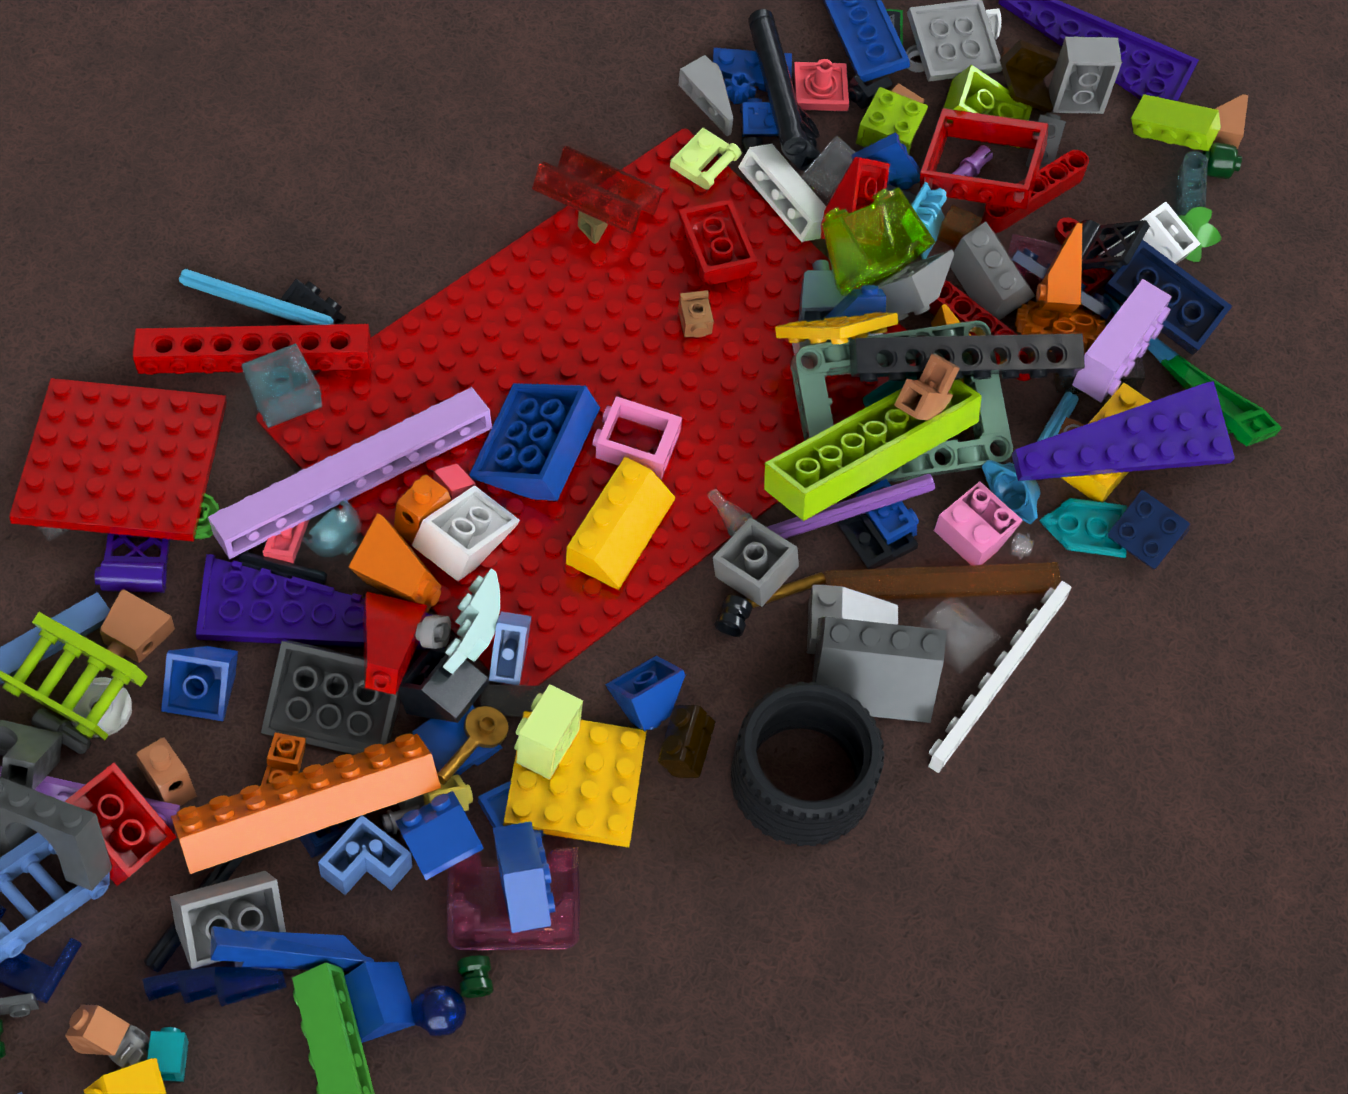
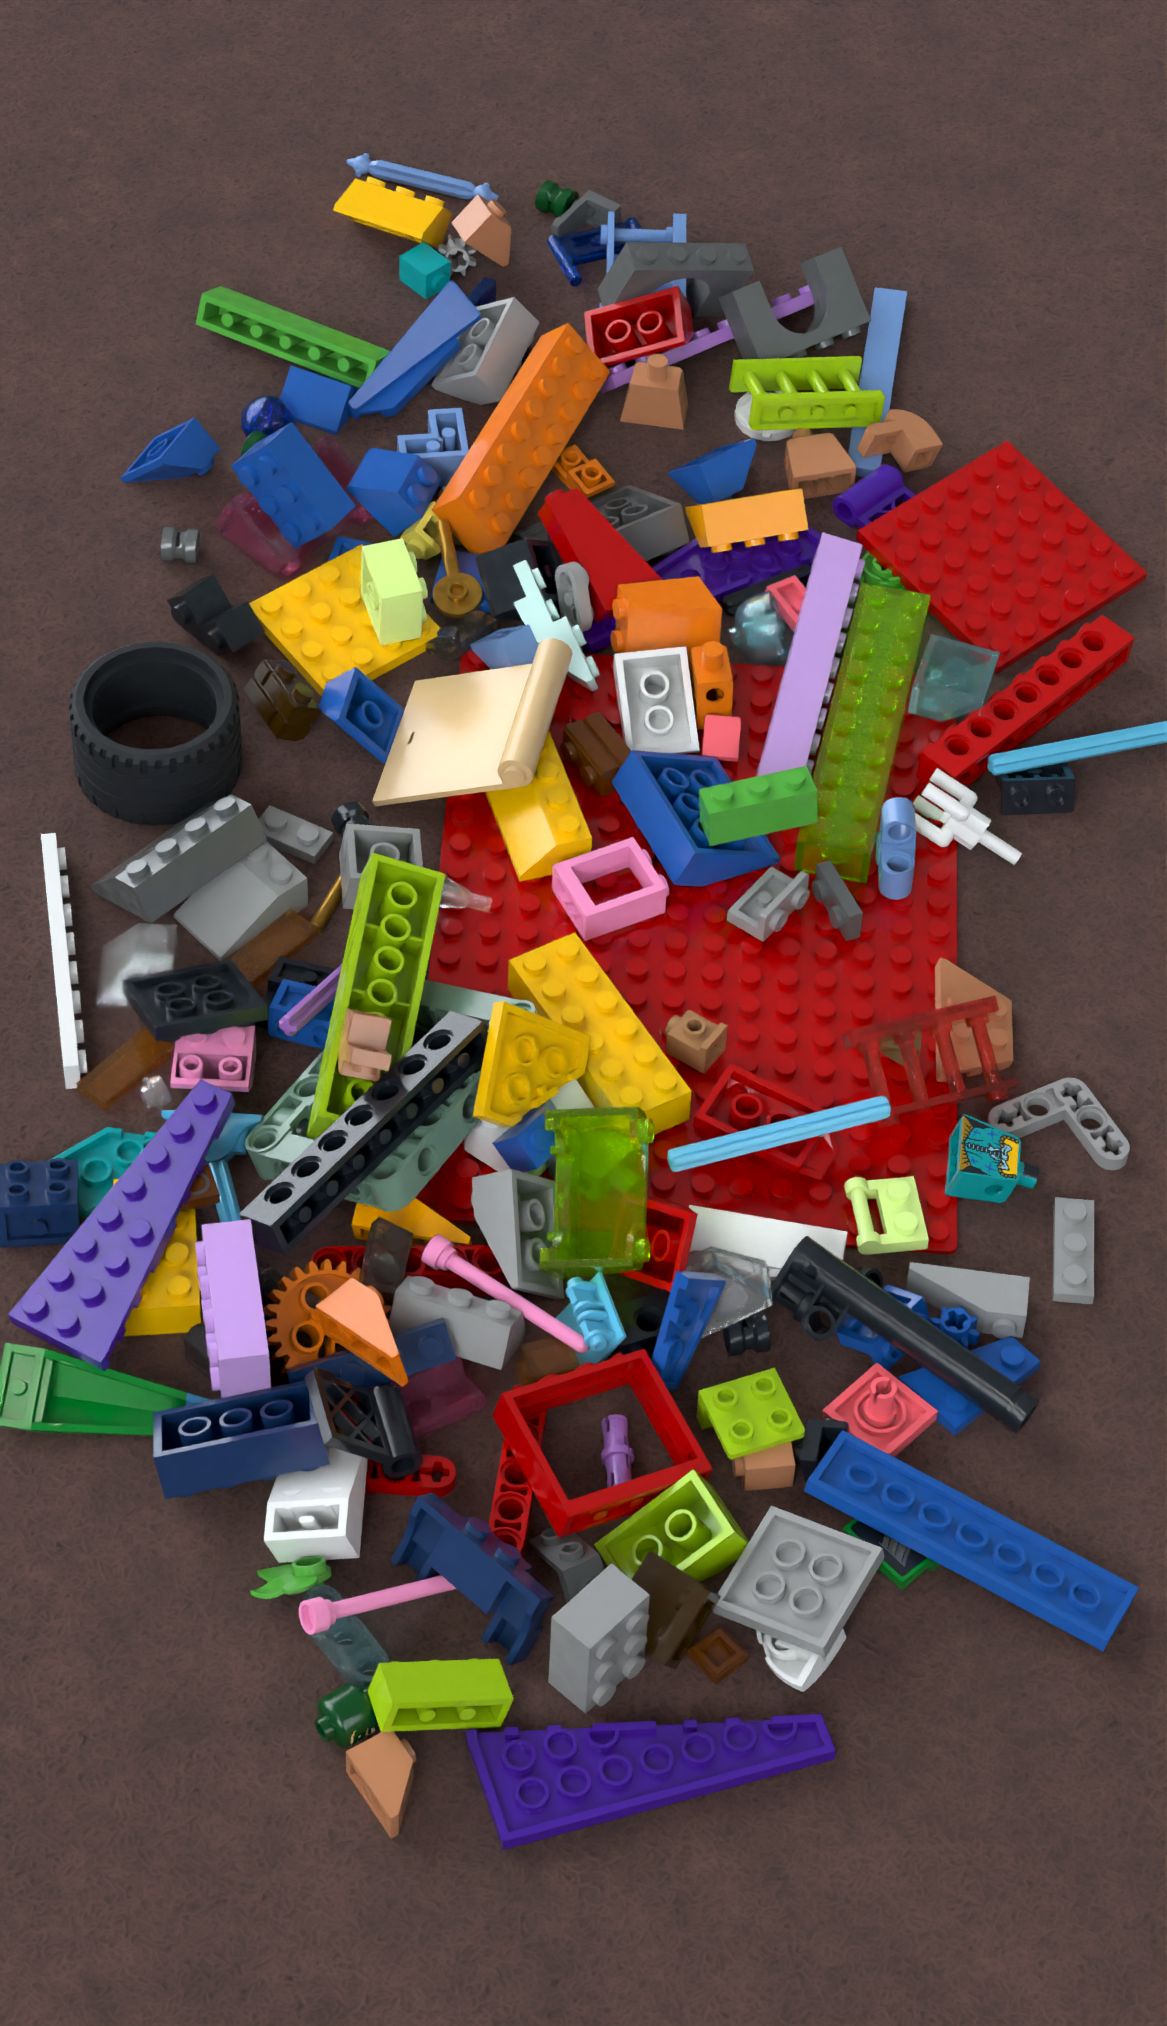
camera: 140 degrees right, 10 degrees down
(62, 590) = (905, 437): none -> nougat brick
(241, 610) = (749, 519): none -> light orange slope
(367, 404) = (864, 730): none -> clear neon green brick
(388, 315) = (958, 818): none -> white plant
(451, 320) = (896, 848): none -> medium blue piece
(518, 330) = (838, 900): none -> dark grey plate
(521, 373) = (758, 805): none -> bright green brick
(528, 218) = (957, 987): none -> nougat wing
(540, 526) = (595, 751): none -> reddish brown brick
(542, 143) = (1064, 1108): none -> light grey beam
(548, 1033) = (174, 454): none -> blue slope
(559, 352) = (769, 903): none -> light grey bracket
(600, 596) = (474, 730): none -> door
(617, 942) = (180, 544): none -> dark grey wheel
(626, 140) = (985, 1162): none -> teal torso
(627, 81) = (1073, 1250): none -> light grey plate
(660, 850) = (211, 619): none -> black brick
(727, 213) = (778, 1133): none -> medium azure axle
(750, 356) = (623, 1058): none -> yellow brick
(771, 652) = (295, 835): none -> light grey plate
(962, 554) = (194, 1000): none -> black plate
(971, 300) = (441, 1254): none -> bright pink piece
(1010, 317) = (385, 1258): none -> clear smoke plate
(1107, 155) = (480, 1568): none -> dark blue bracket
(1206, 185) = (319, 1614): none -> bright pink piece

